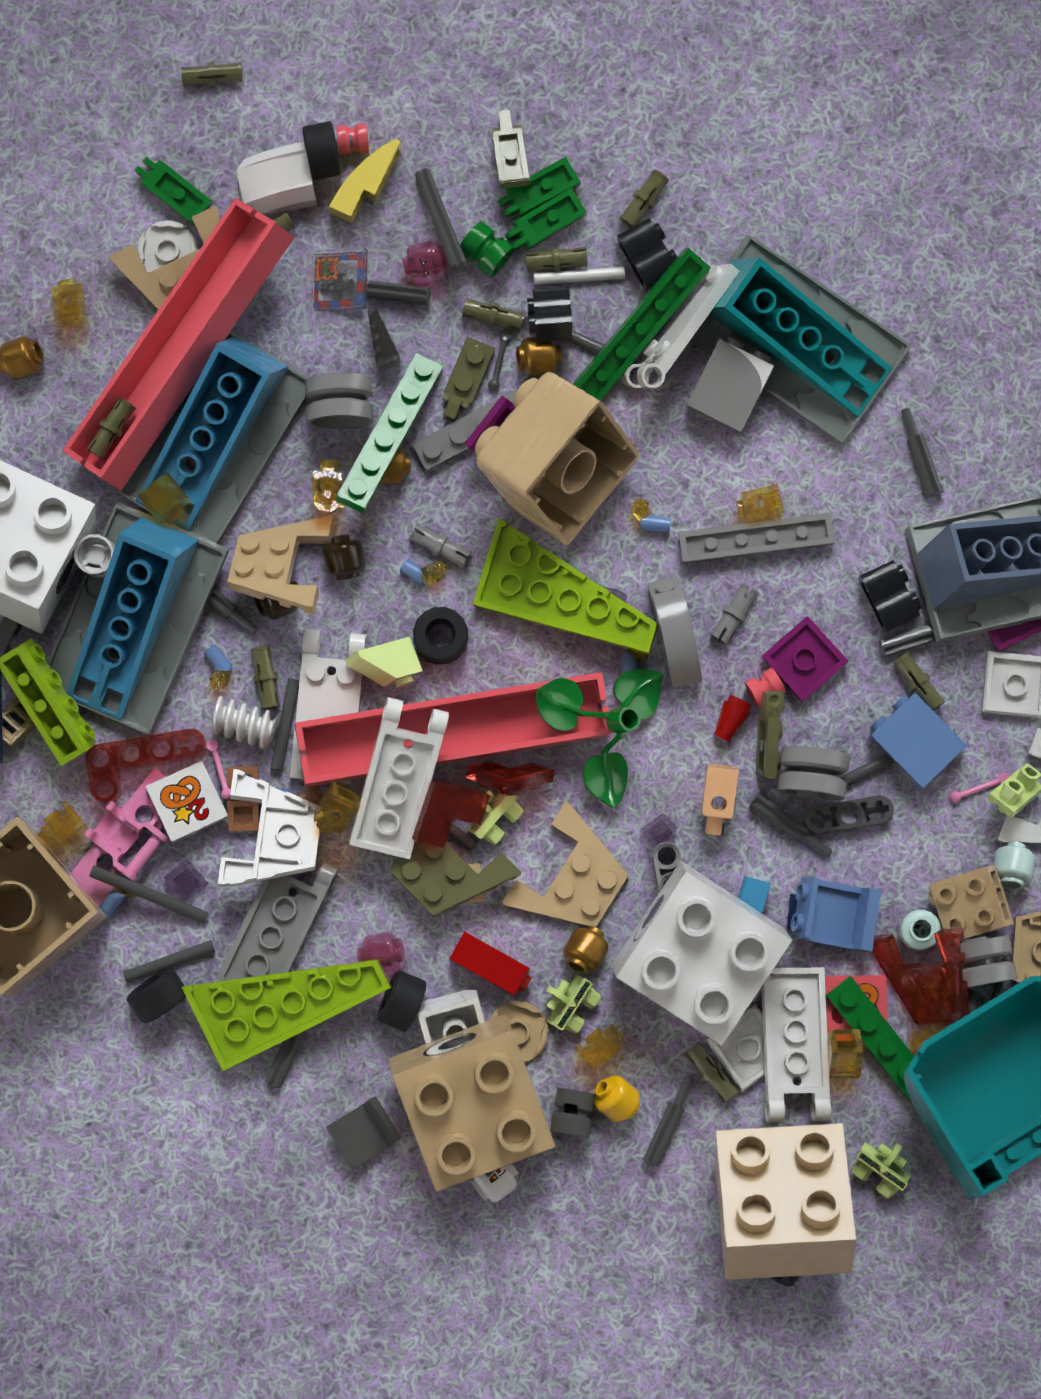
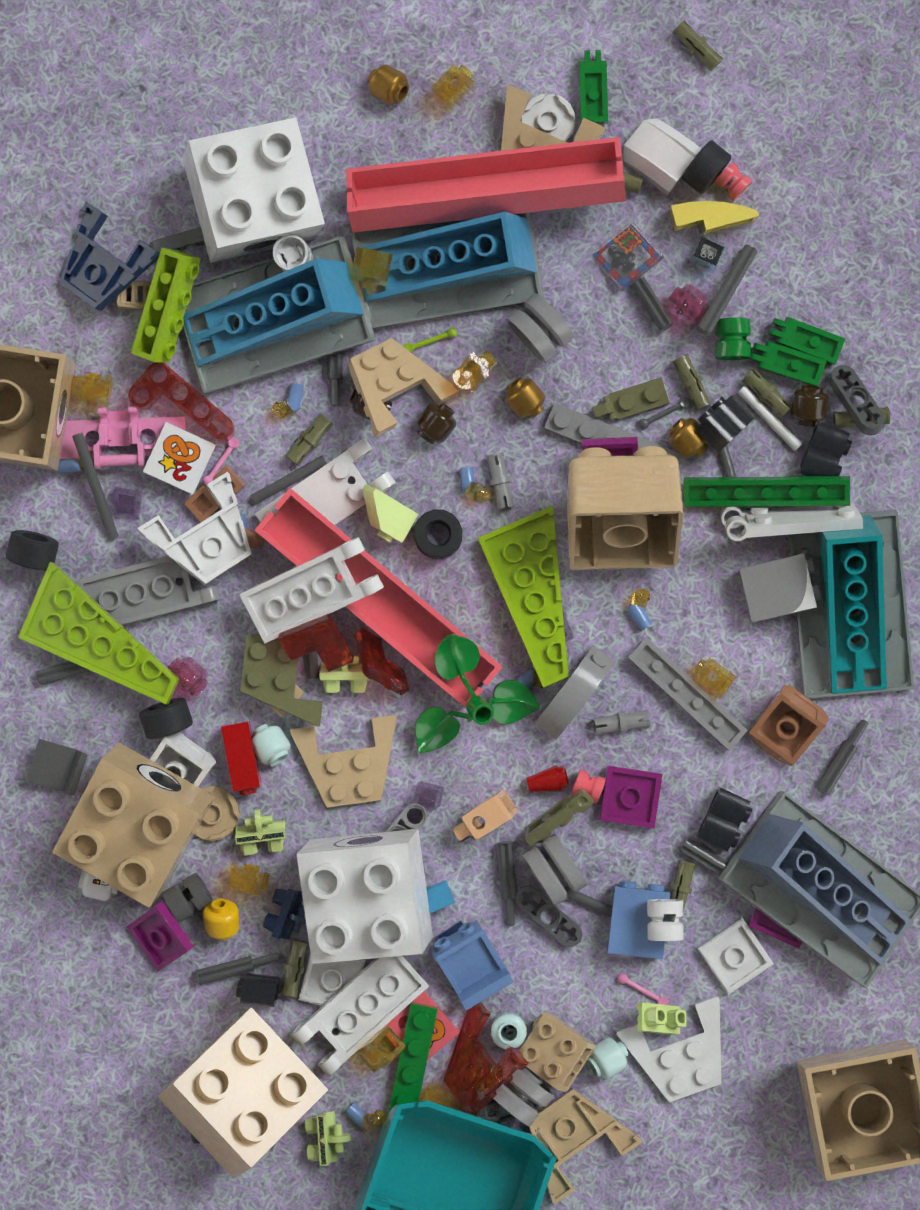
camera: 50 degrees right, 5 degrees up
(111, 428) = (389, 188): olive pin -> none
(169, 961) = (63, 537): dark grey bar -> none
(244, 723) = (264, 451): white piece -> none
(277, 482) = (451, 332): none -> lime hinge
(337, 800) = (256, 565): clear yellow brick -> none
(384, 349) = (603, 328): clear smoke slope -> none
(389, 433) = (546, 381): plate -> none
(395, 212) = (707, 253): none -> slope
(501, 930) = (270, 745): none -> light aqua head
(510, 153) = (815, 298): hinge -> none
(585, 950) = (305, 813): pearl gold head -> none
(587, 1164) = (160, 936): none -> magenta plate
(597, 232) = (809, 405): none -> dark brown head
(636, 197) = (857, 388): none -> dark grey beam
(664, 1036) = (290, 916): none -> dark blue hips
(705, 1116) = (258, 989): none -> black brick
(855, 476) = (788, 725): none -> nougat slope
(896, 1121) = (366, 1120): none -> arm
(936, 725) = (665, 929): none -> white wheel

